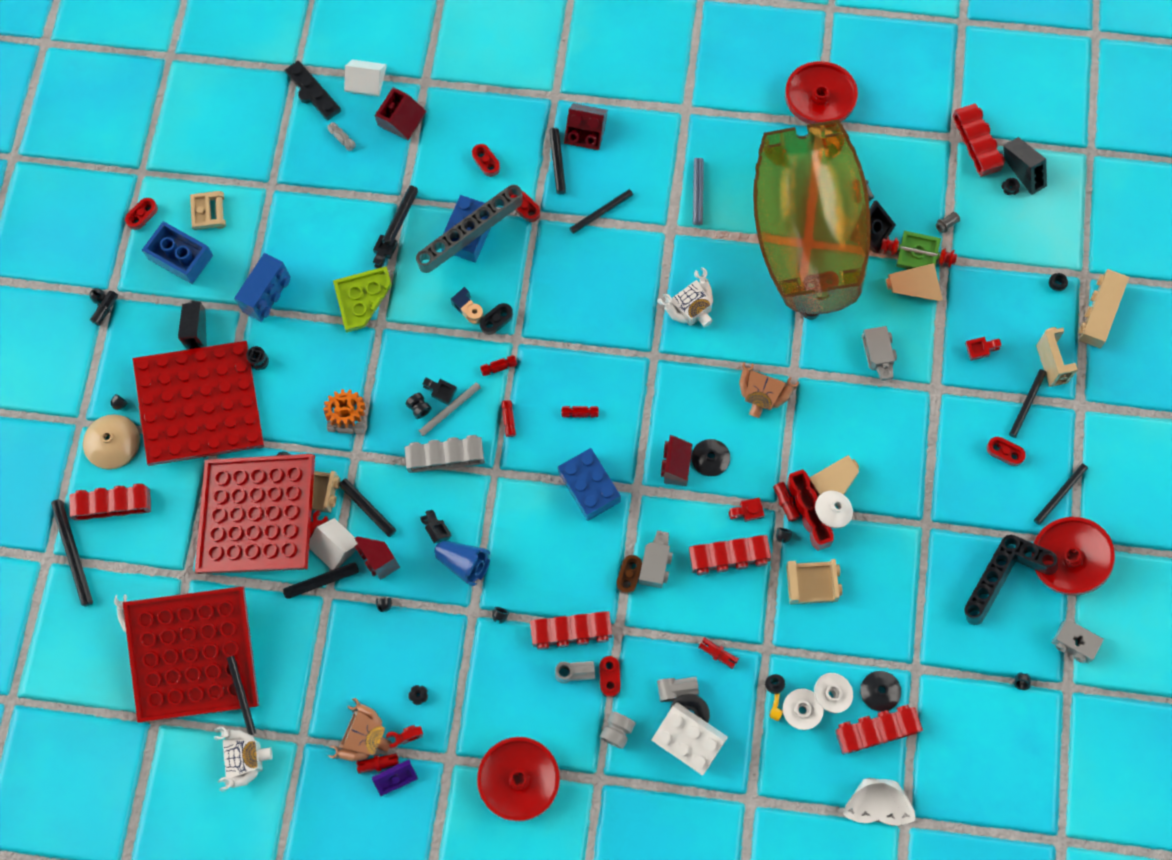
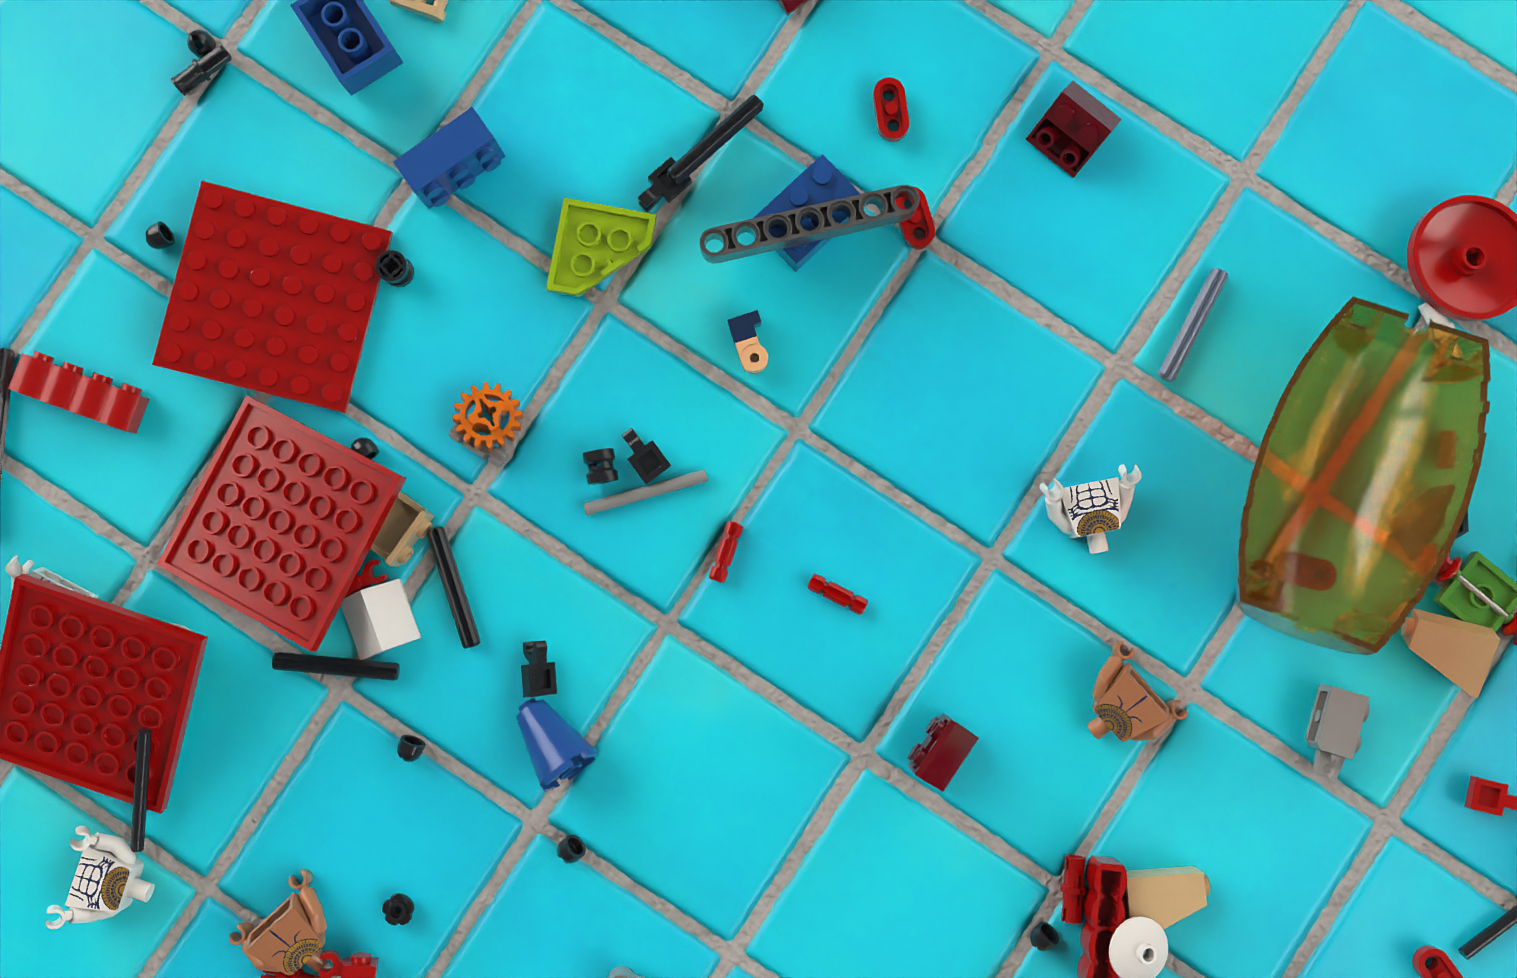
camera: 20 degrees right, 15 degrees up
(118, 449) = (141, 297): tan dish -> none
(192, 325) = (319, 168): black slope -> none
(378, 555) = (428, 678): dark red slope -> none
(446, 454) = (602, 563): light grey brick -> none
(494, 317) = (782, 383): black plate -> none
(498, 365) = (751, 459): red axle -> none
(557, 160) = (1001, 164): black axle -> none
(570, 629) = (662, 926): red brick -> none
(589, 484) = (795, 719): blue brick -> none
(604, 209) = (1027, 283): black bar -> none
(629, 575) = (788, 884): reddish brown plate -> none
(655, 561) = (835, 886): light grey hinge -> none
(710, 466) = (980, 760): black dish -> none
(728, 554) = (949, 929): red brick -> none
(749, 509) = (1012, 873): red plate -> none

